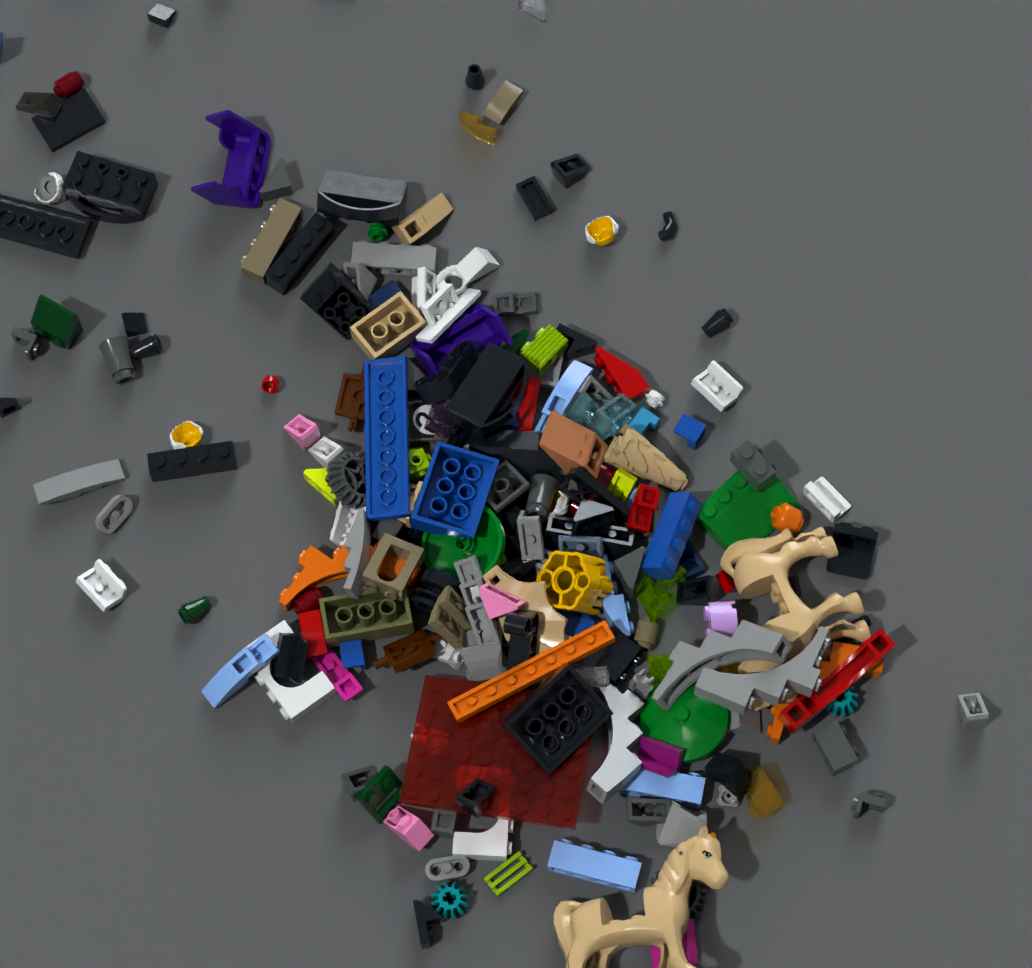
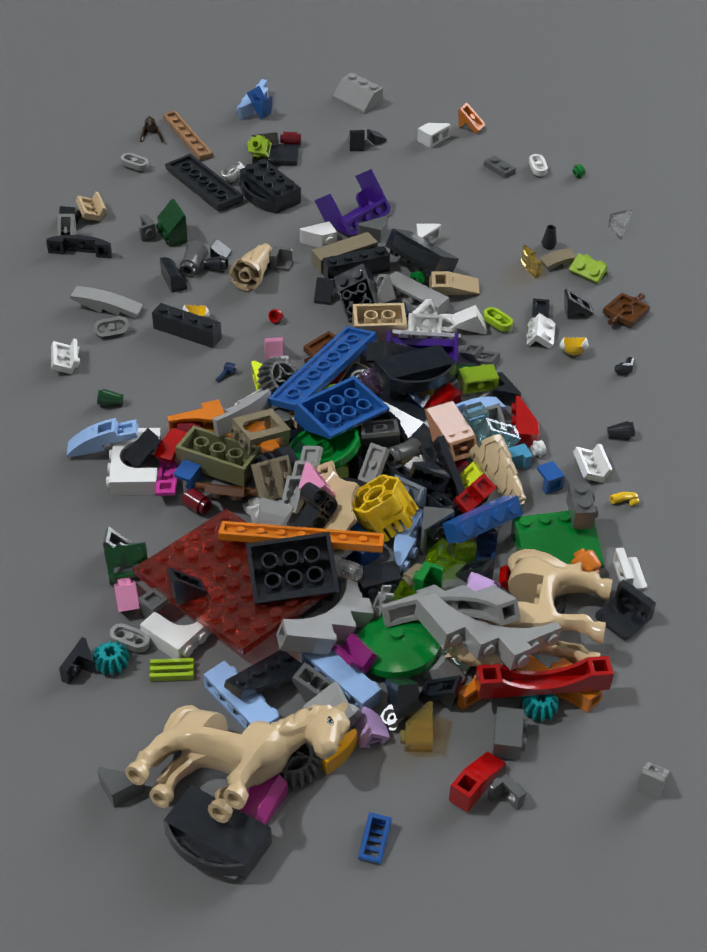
camera: 30 degrees right, 25 degrees down
(52, 131) = (259, 146): none -> lime brick
(114, 396) = (172, 275): none -> black brick
(146, 39) = (356, 140): none -> black slope
(196, 334) = (249, 269): none -> tan cone
(211, 295) = (281, 258): none -> dark grey panel
(226, 231) = (318, 235): none -> white slope
(280, 488) = (228, 368): none -> dark blue hand
(291, 311) = (324, 290): none -> black slope
(338, 154) = (429, 232): none -> white slope
(385, 681) = (196, 501): none -> dark red brick
(501, 239) = (498, 319): none -> lime plate
(544, 99) = (588, 268): none -> lime bracket
(555, 231) = (541, 330): none -> white bracket
(600, 829) = (264, 674): none -> black wing
(620, 140) = (626, 309): none -> reddish brown plate
(666, 630) = (428, 575): none -> green bracket
(719, 818) = (370, 728): none -> lavender brick
(753, 742) = (441, 690): none -> black slope
(769, 407) = (624, 496): none -> yellow arm
(800, 914) = (379, 820): none -> blue slope
(838, 809) = (475, 780): none -> red slope

